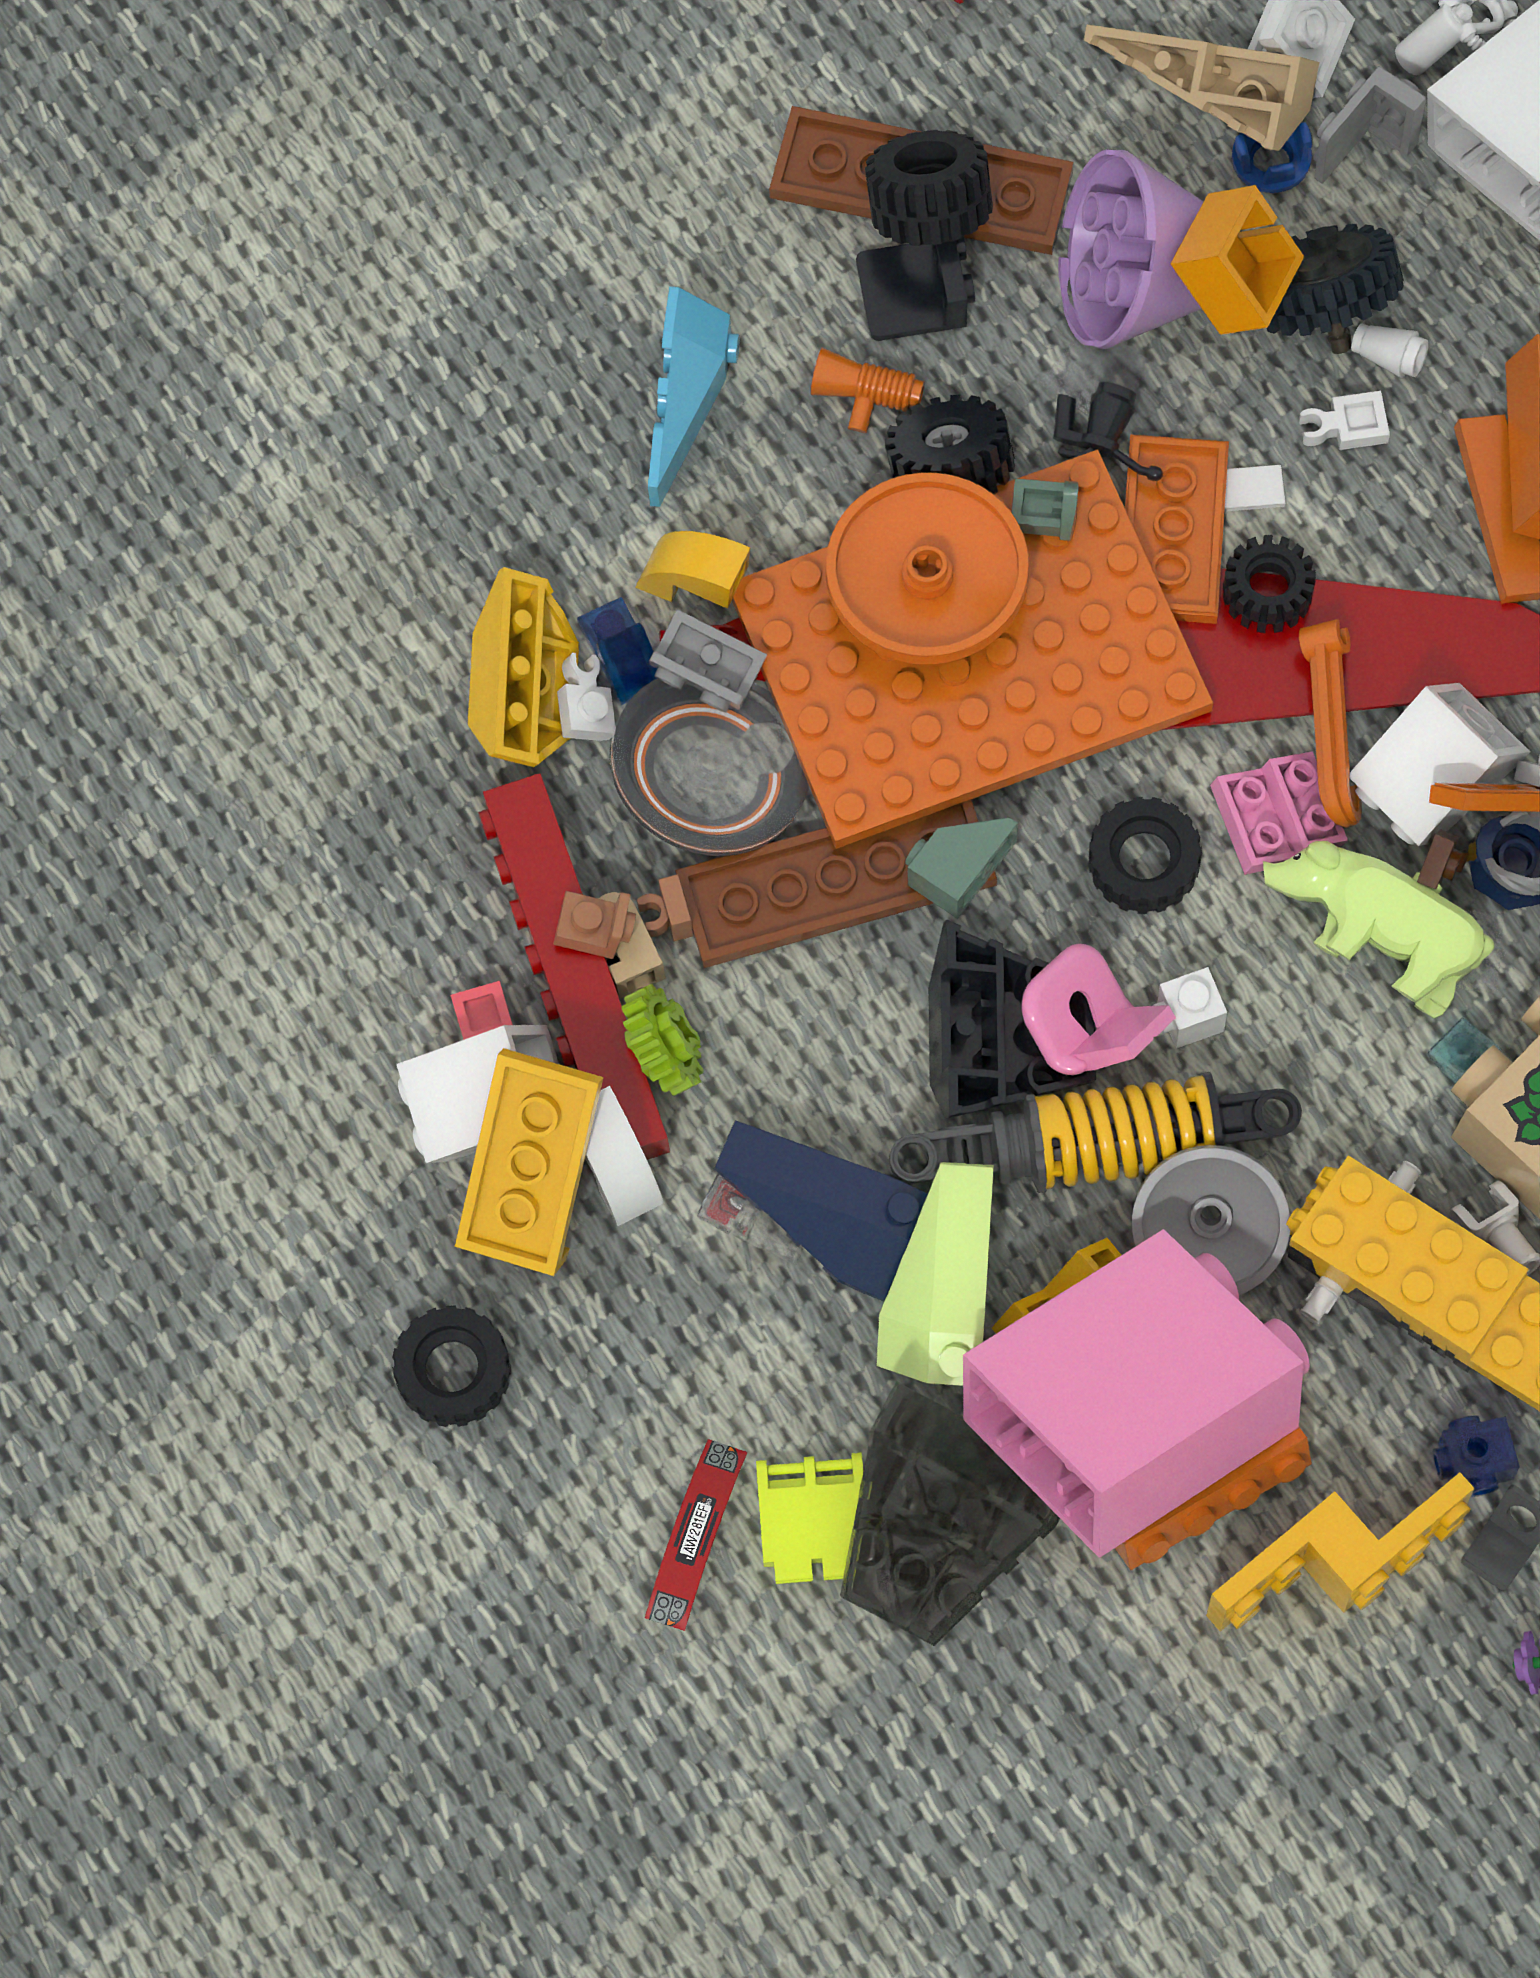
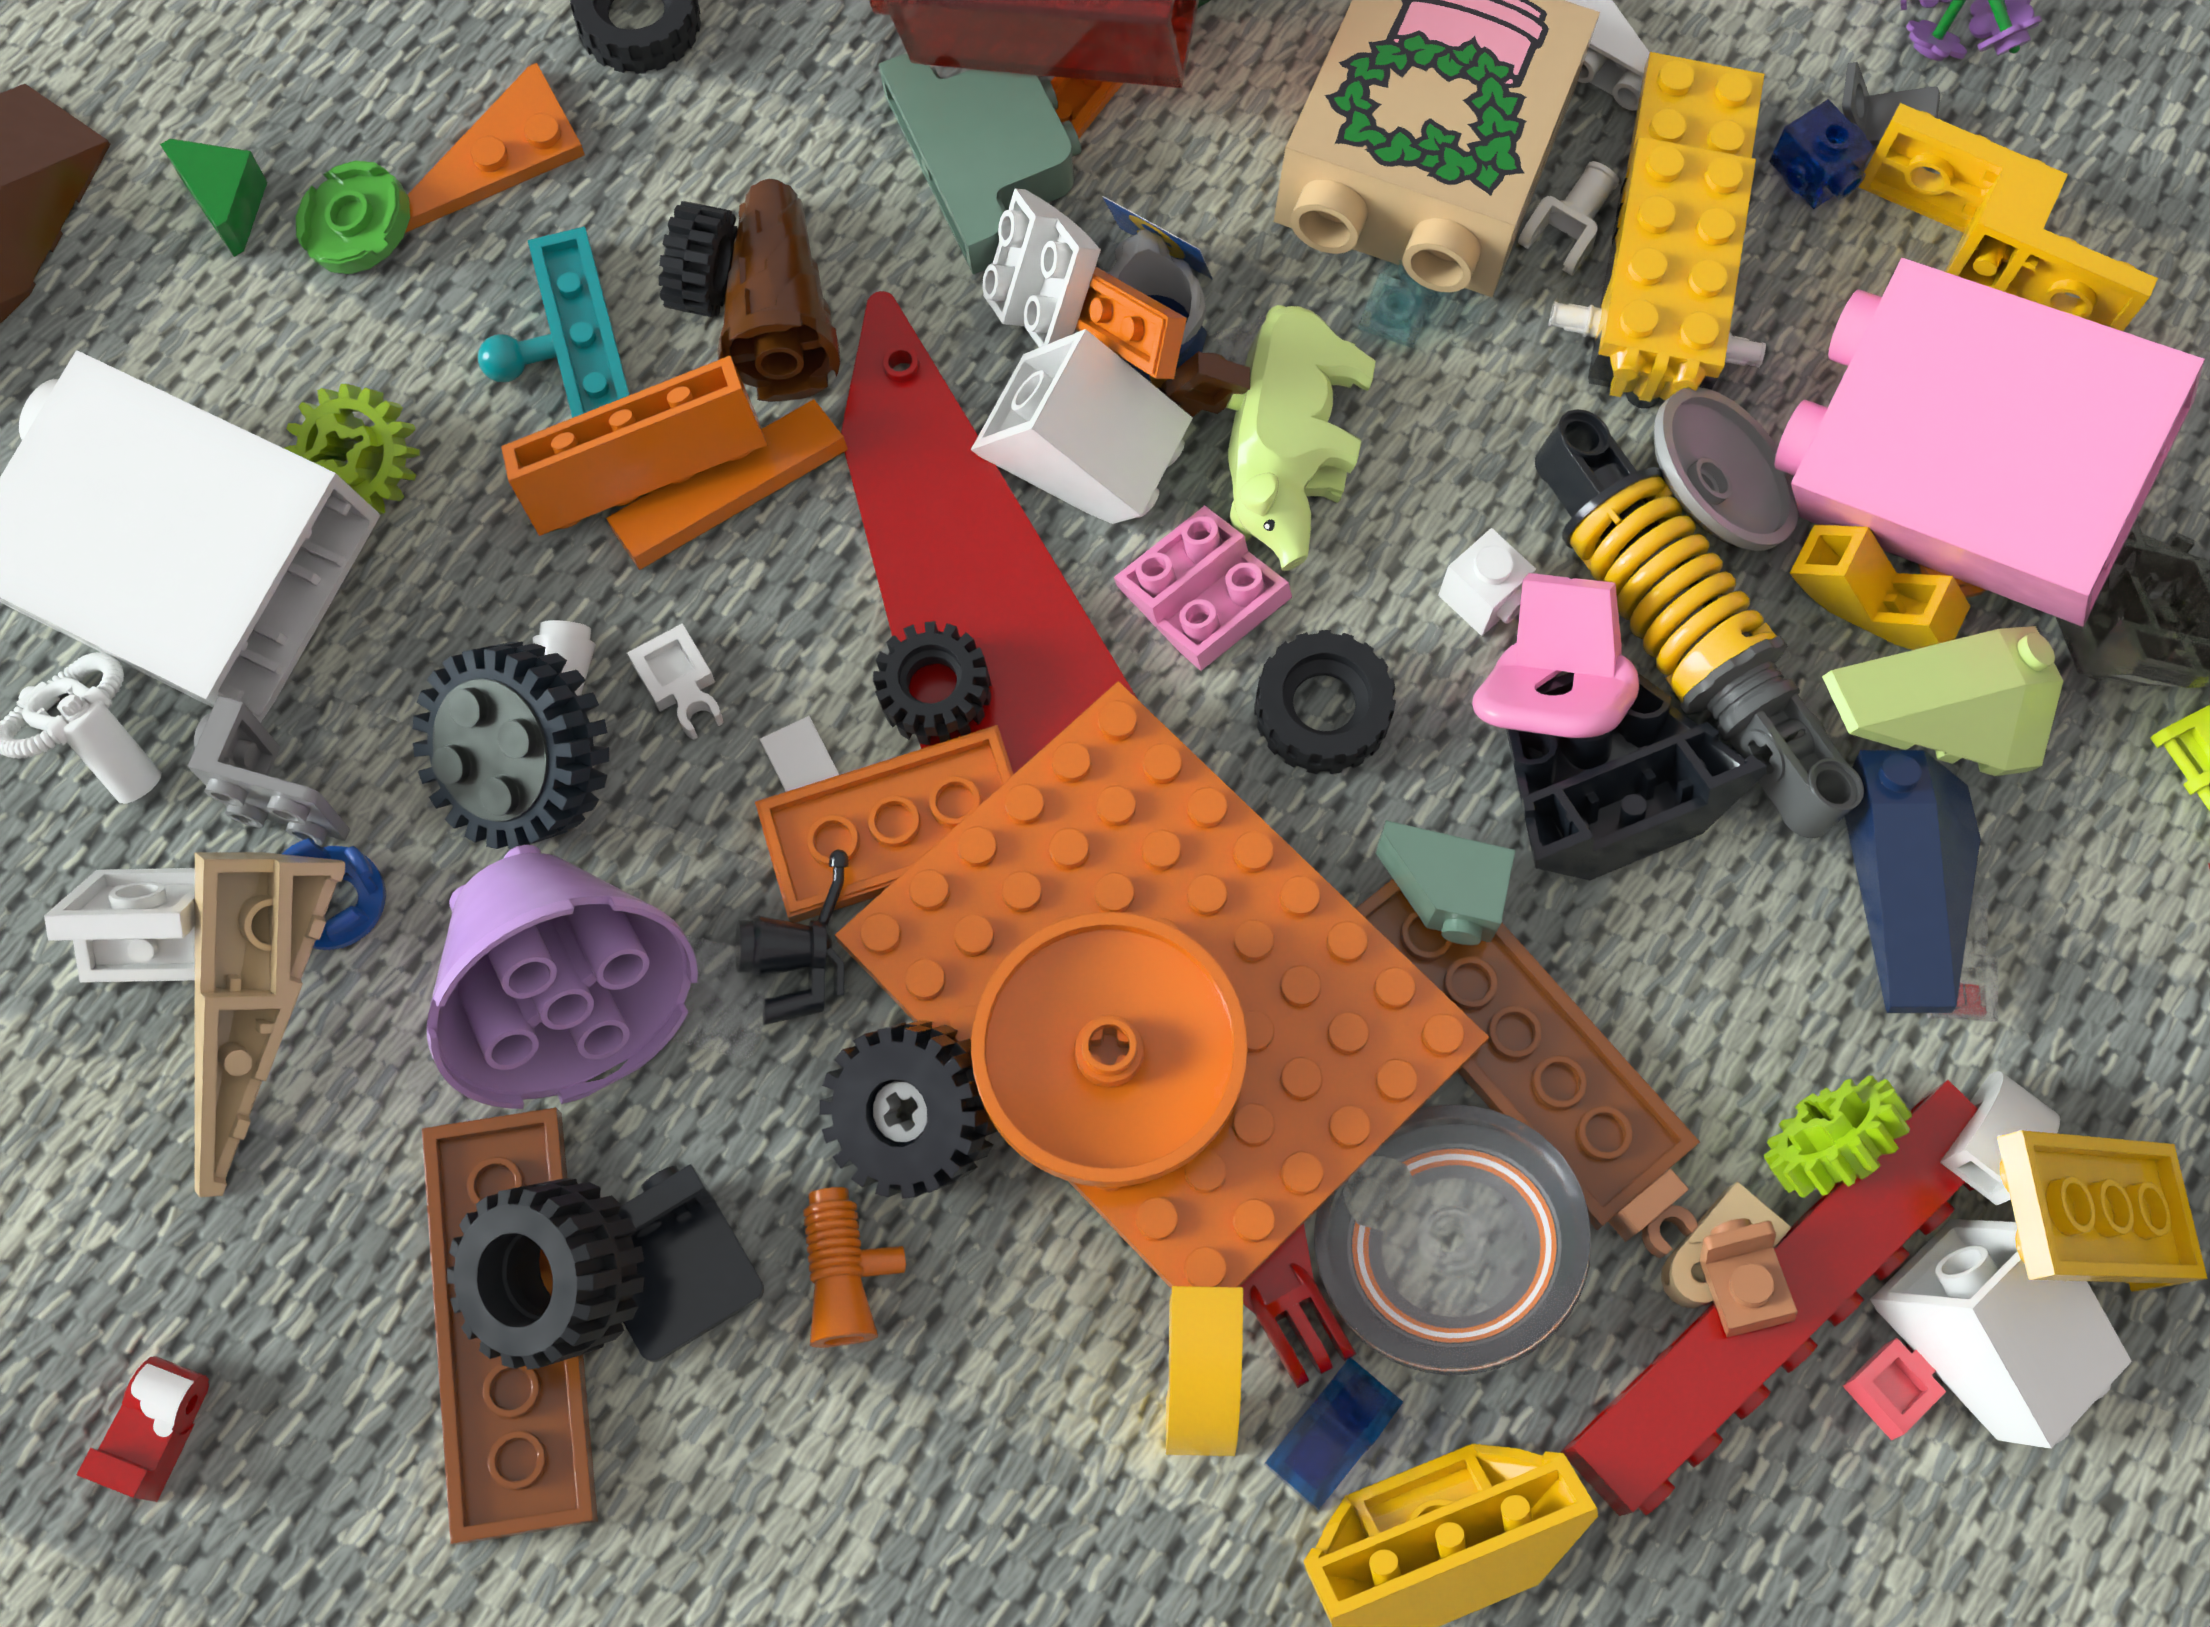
camera: 120 degrees left, 0 degrees up
(584, 707) = (1435, 1439): white plate -> none
(696, 358) = (905, 1505): medium azure wedge -> none
(708, 661) = (1340, 1288): light grey bracket -> none
(1045, 507) = (949, 949): sand green tile -> none
(1236, 273) = (546, 813): light orange piece -> none
(1323, 648) = (995, 589): orange piece -> none

